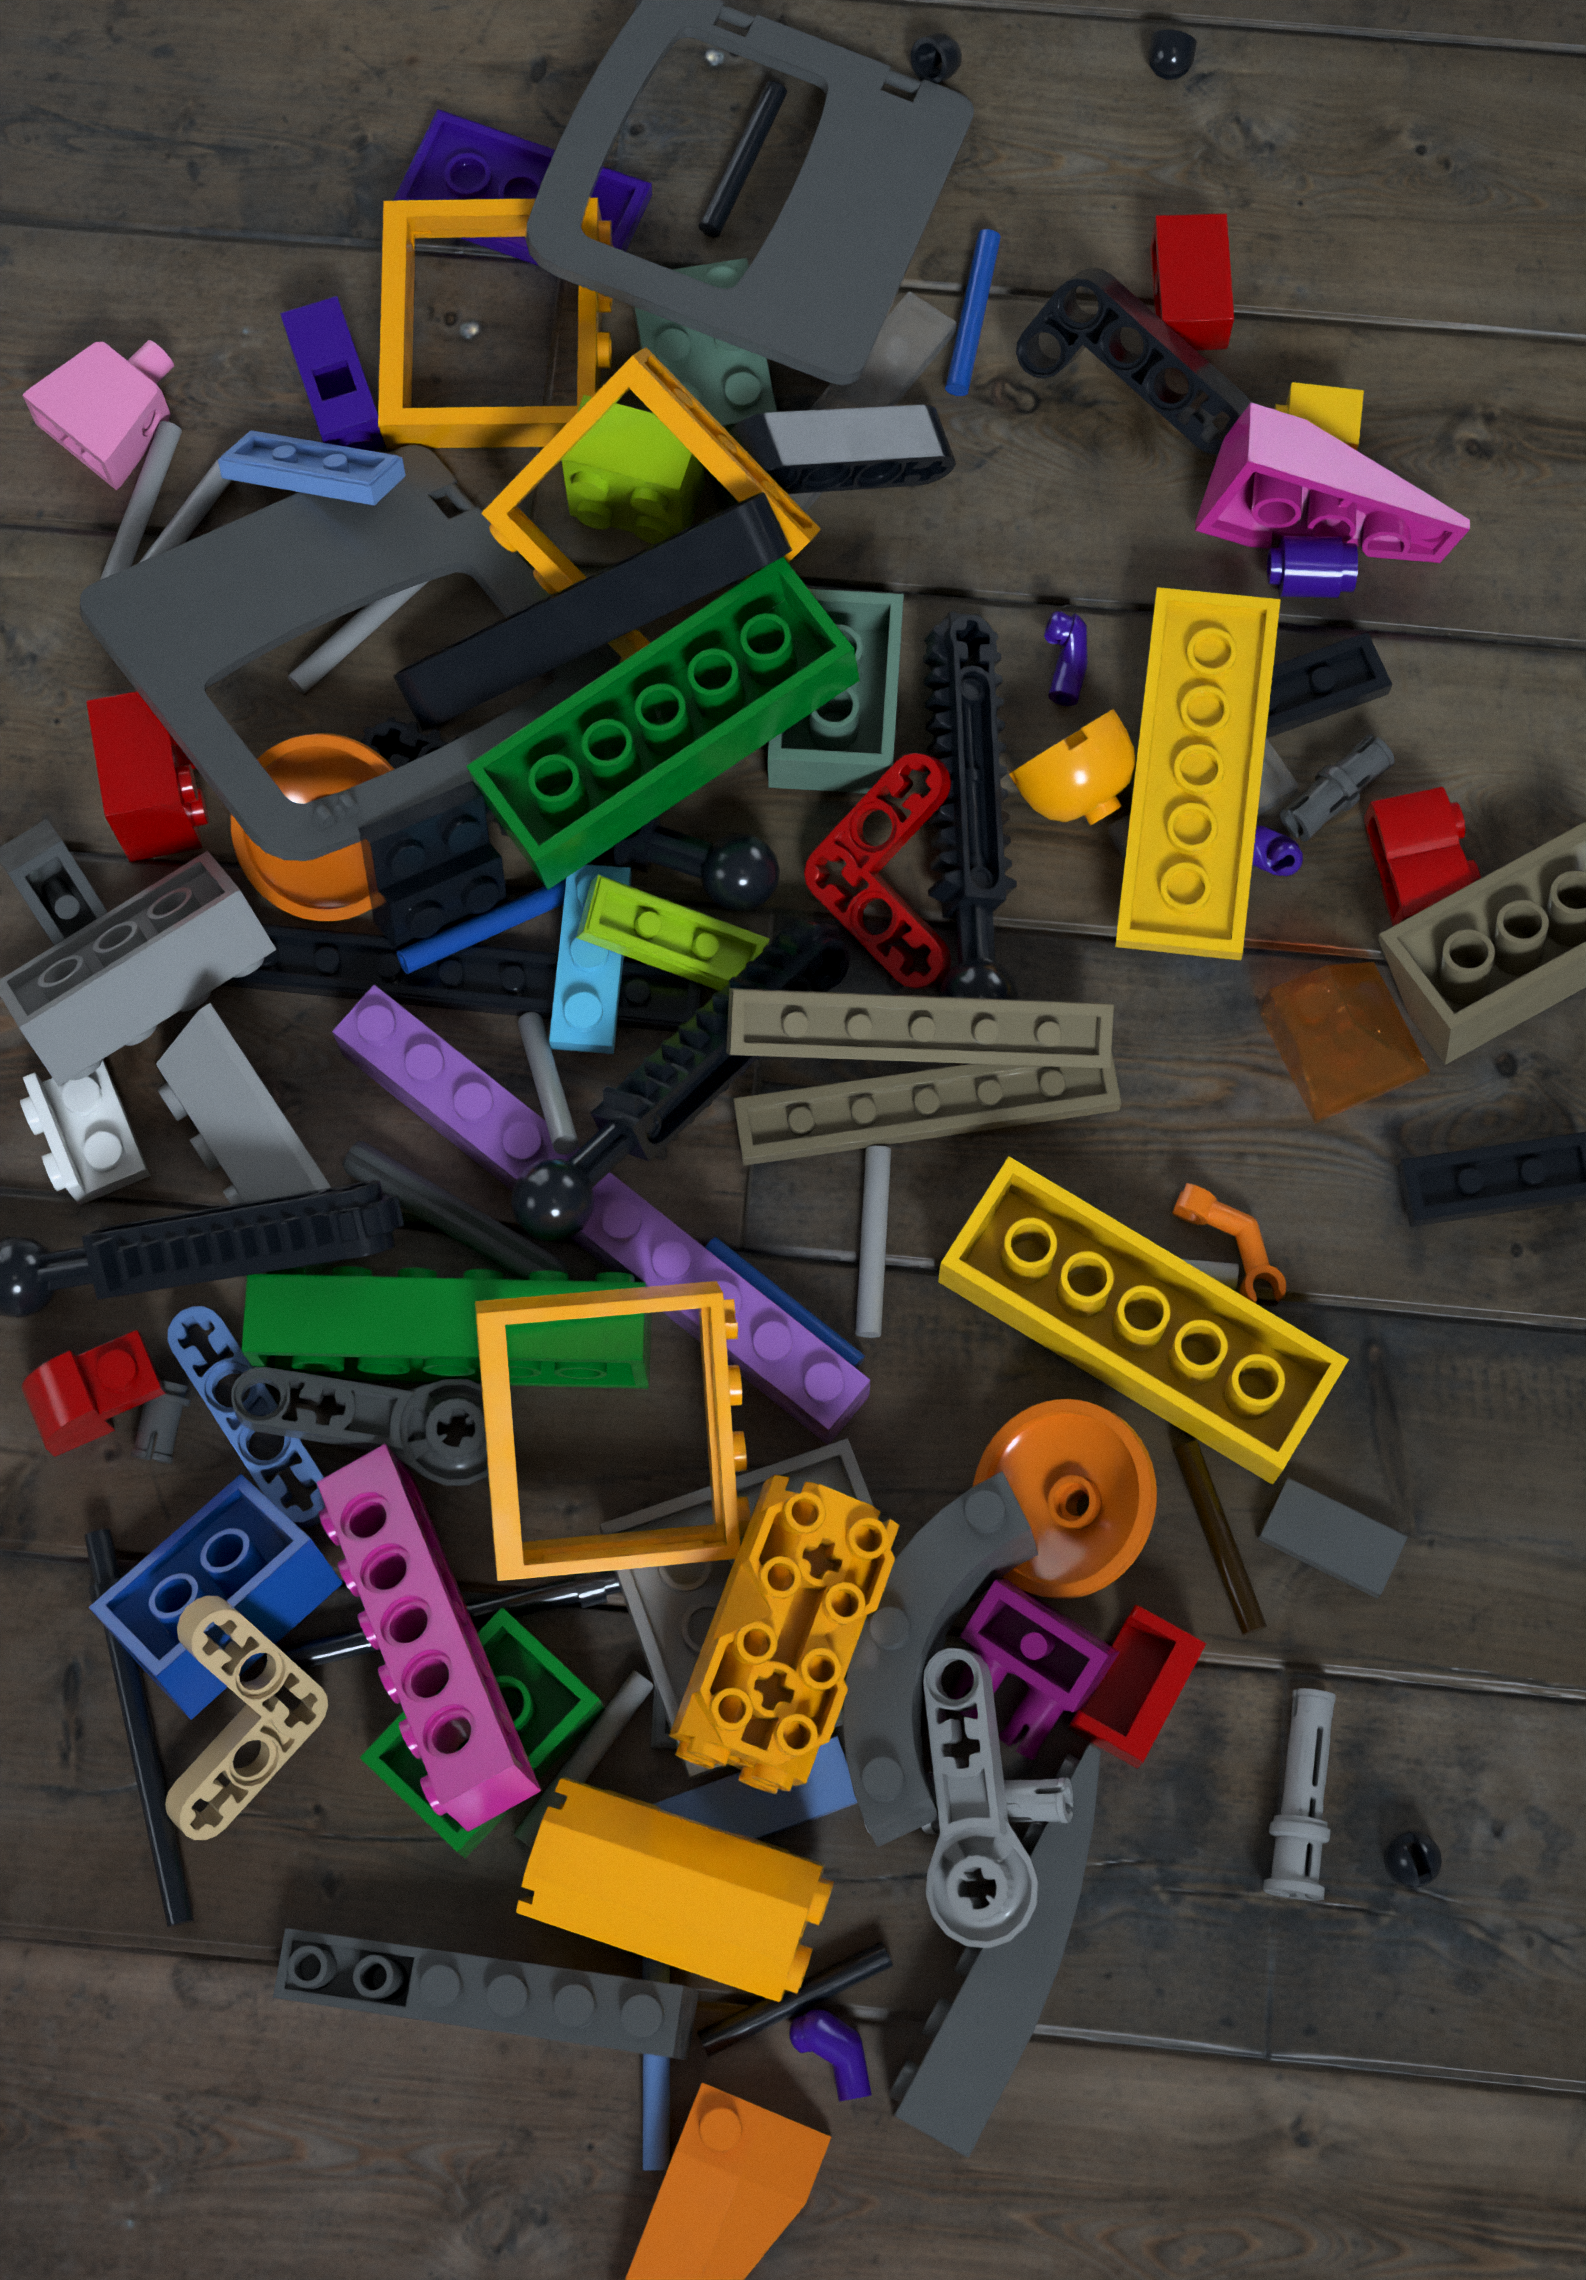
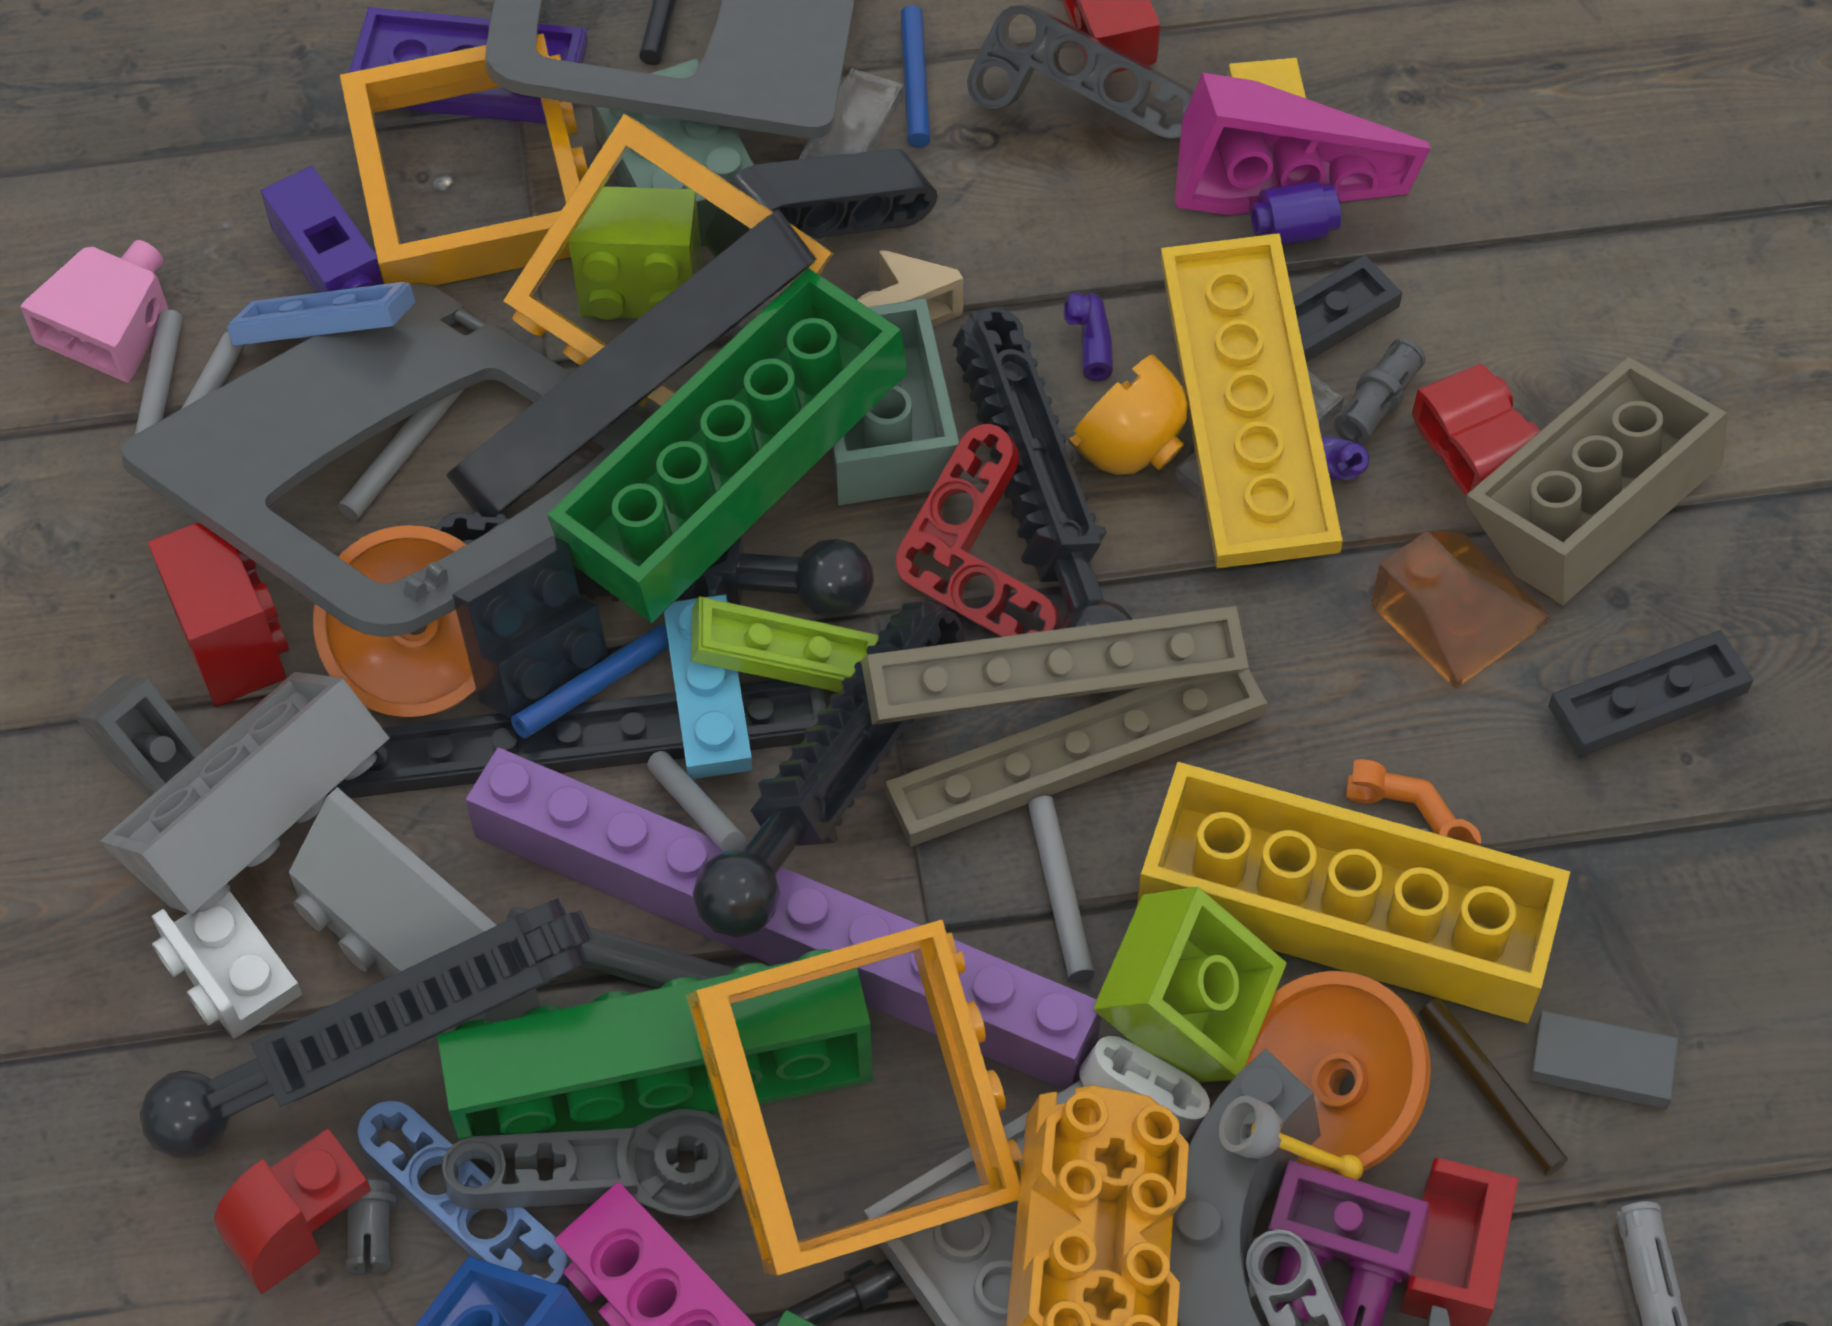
camera: 15 degrees left, 15 degrees down
(891, 1465) = (1129, 1068): none -> white beam
(900, 570) = (914, 279): none -> tan slope
(957, 1382) = (1190, 984): none -> lime brick
(975, 1561) = (1265, 1137): none -> light grey hinge

